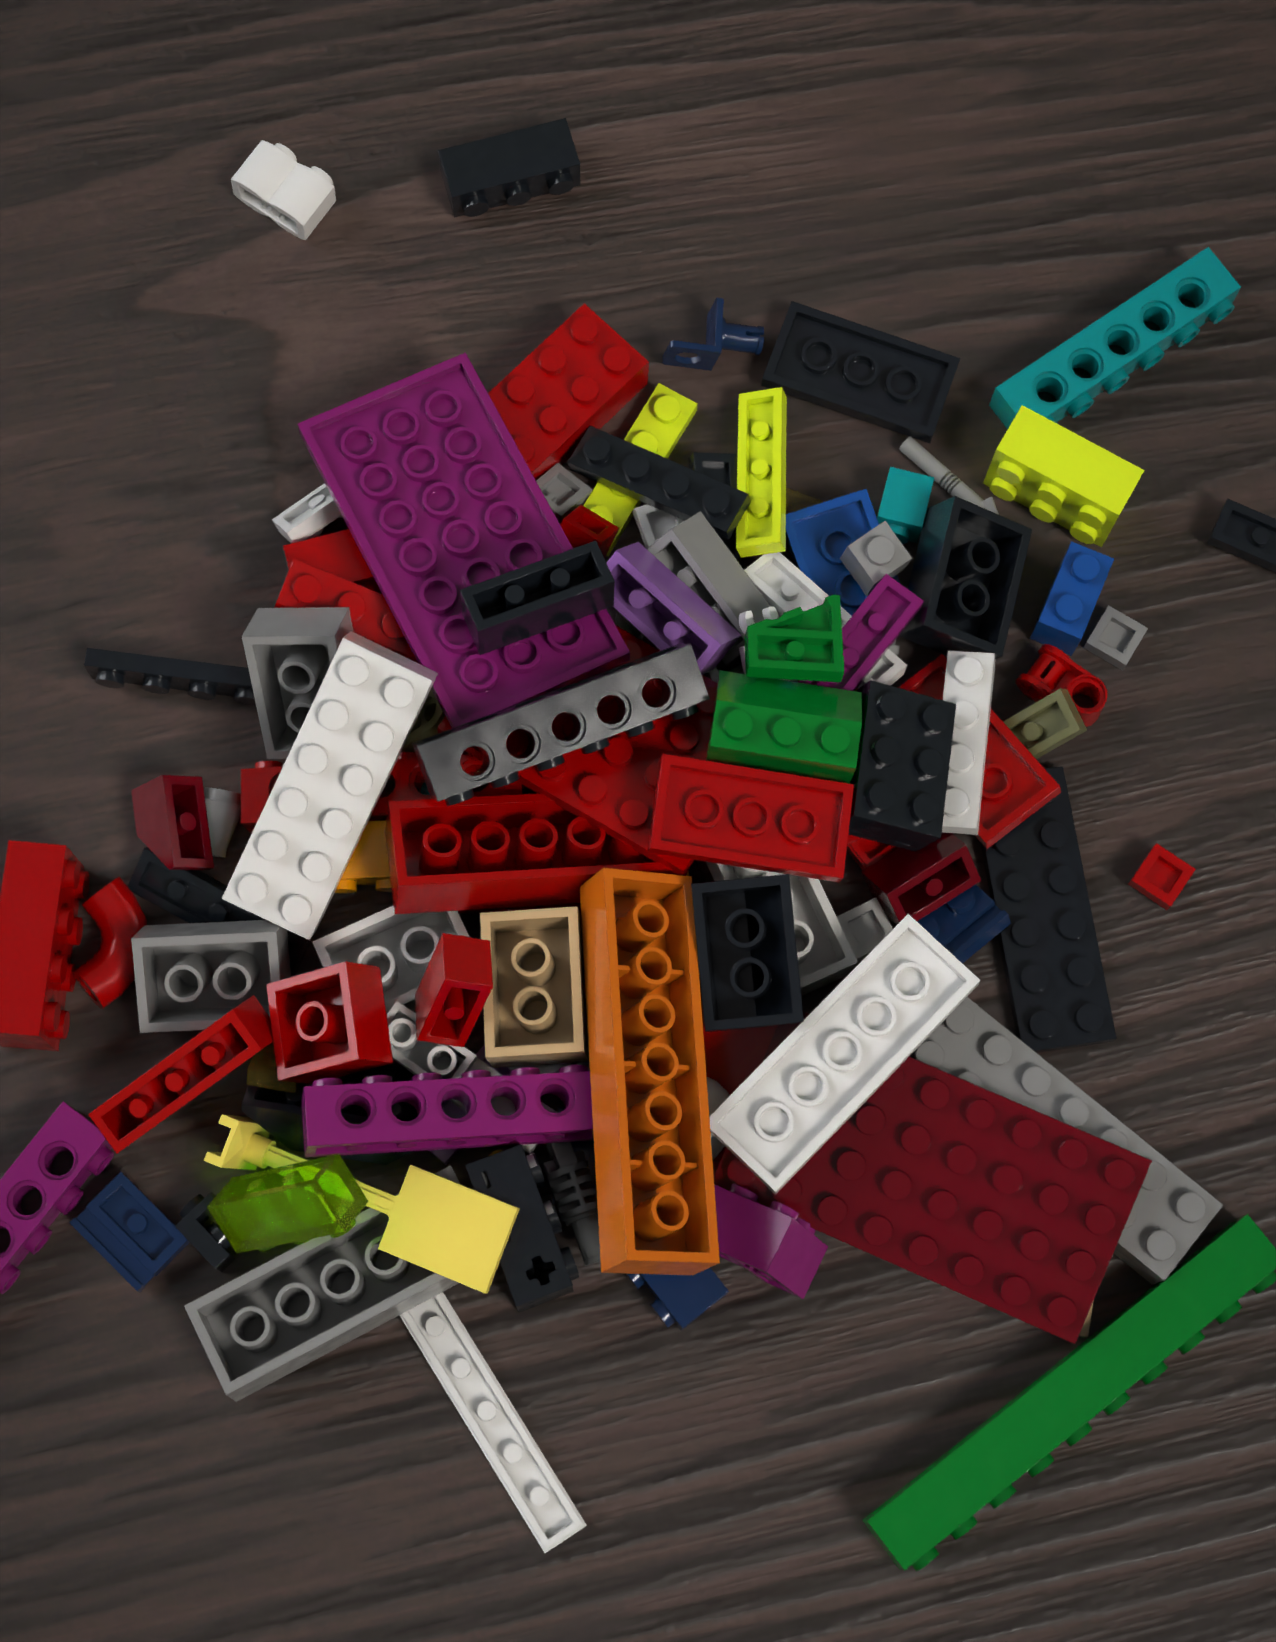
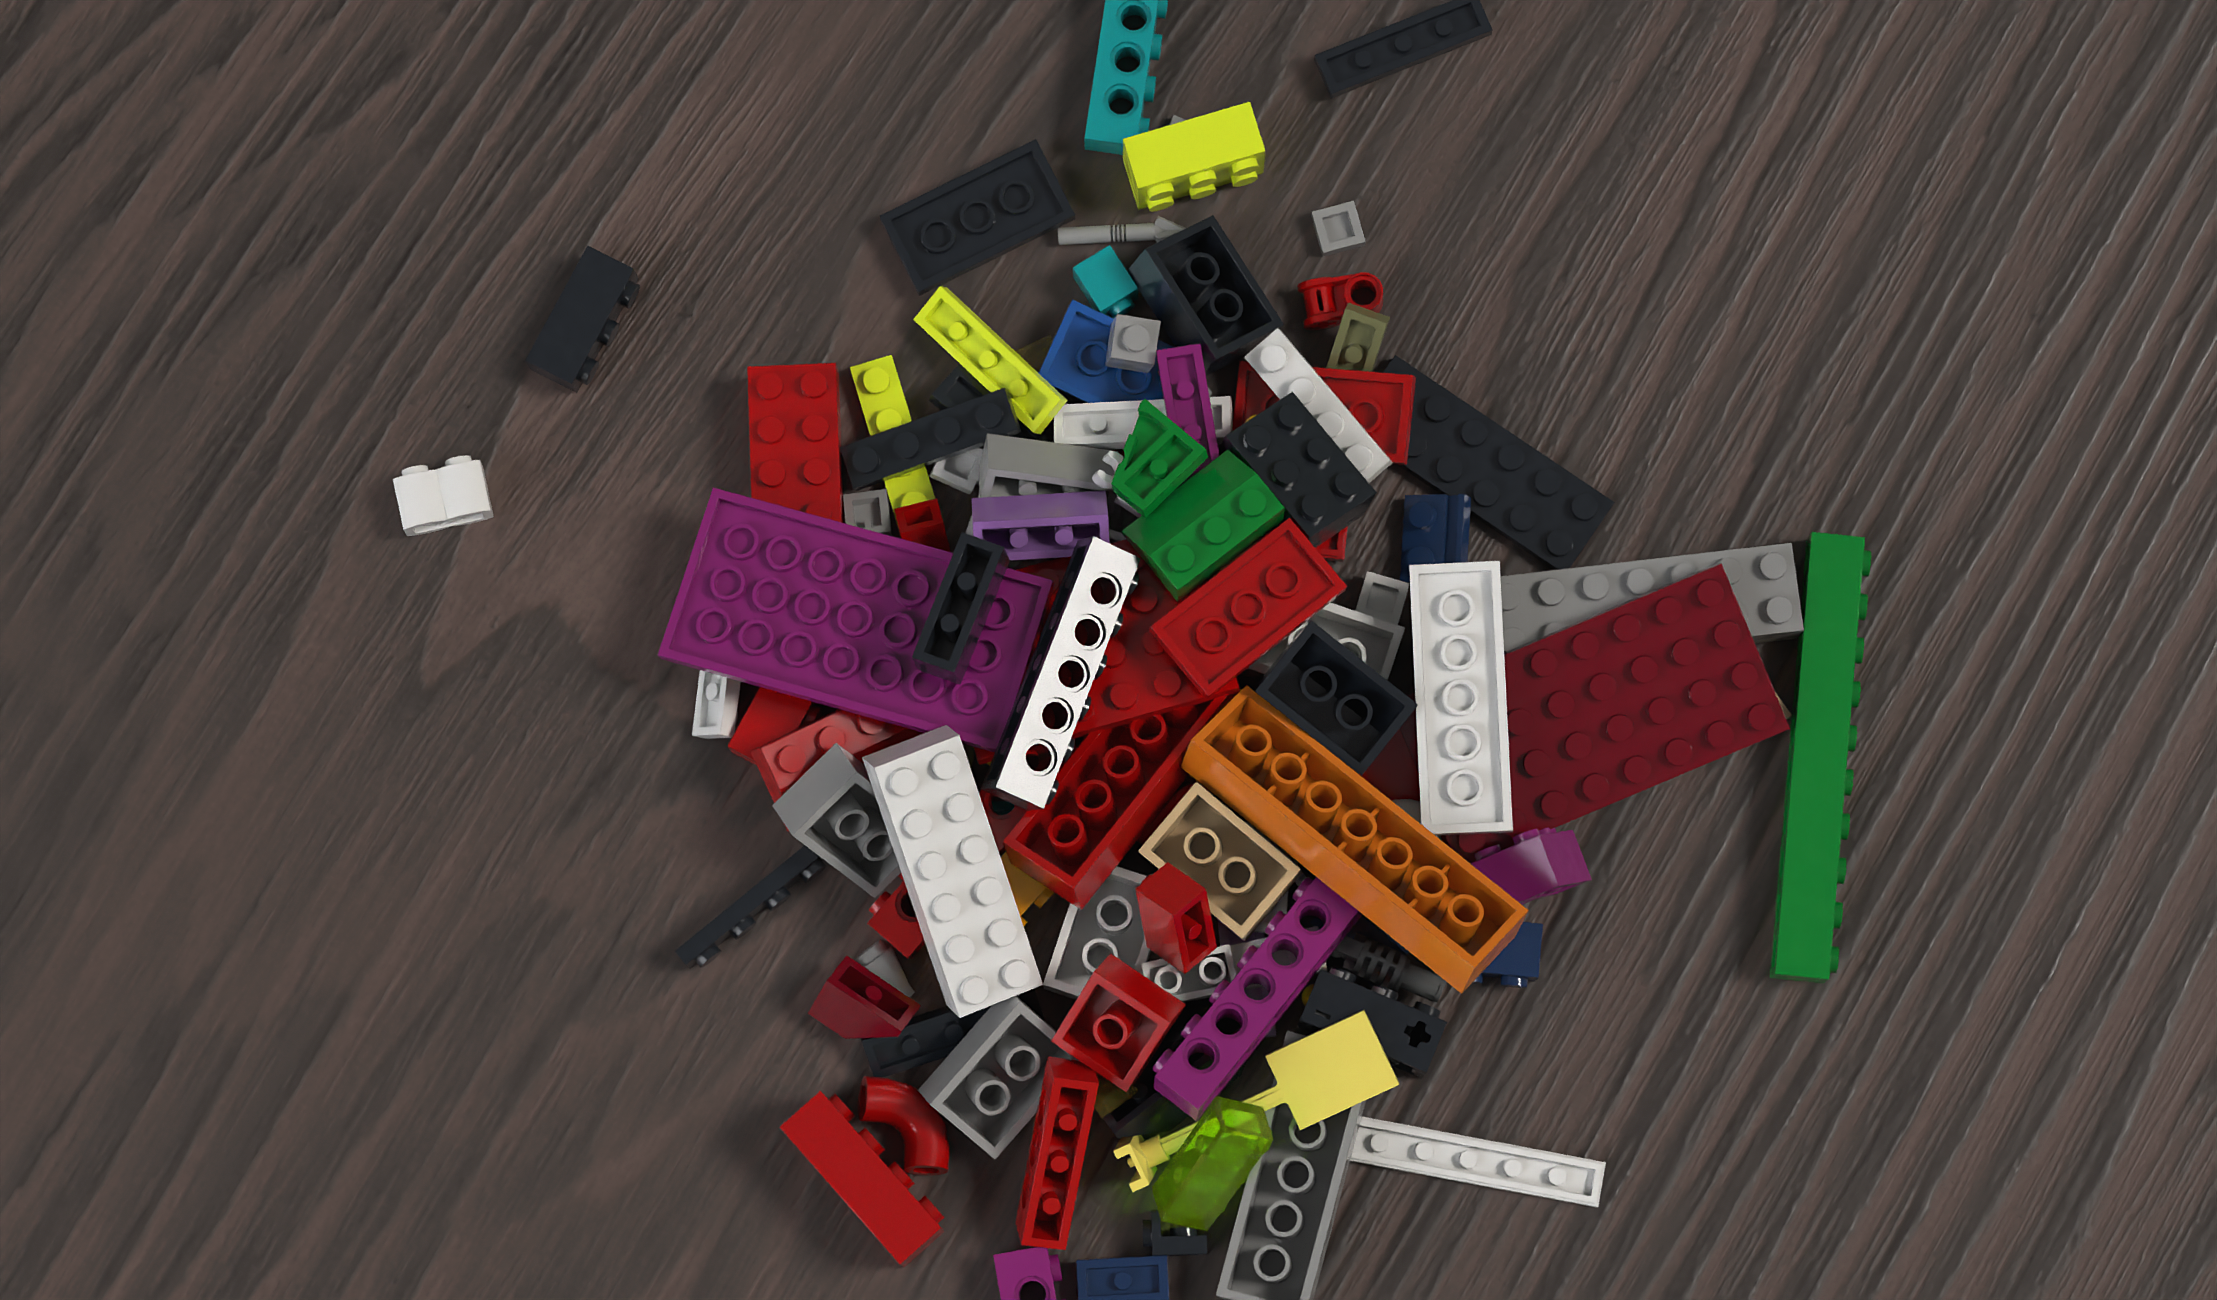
camera: 40 degrees left, 5 degrees up
(718, 337) = (855, 293): dark blue bracket -> none
(921, 879) = (1386, 533): dark red brick -> none
(1072, 598) = (1284, 233): blue brick -> none
(1161, 876) = (1534, 363): red plate -> none

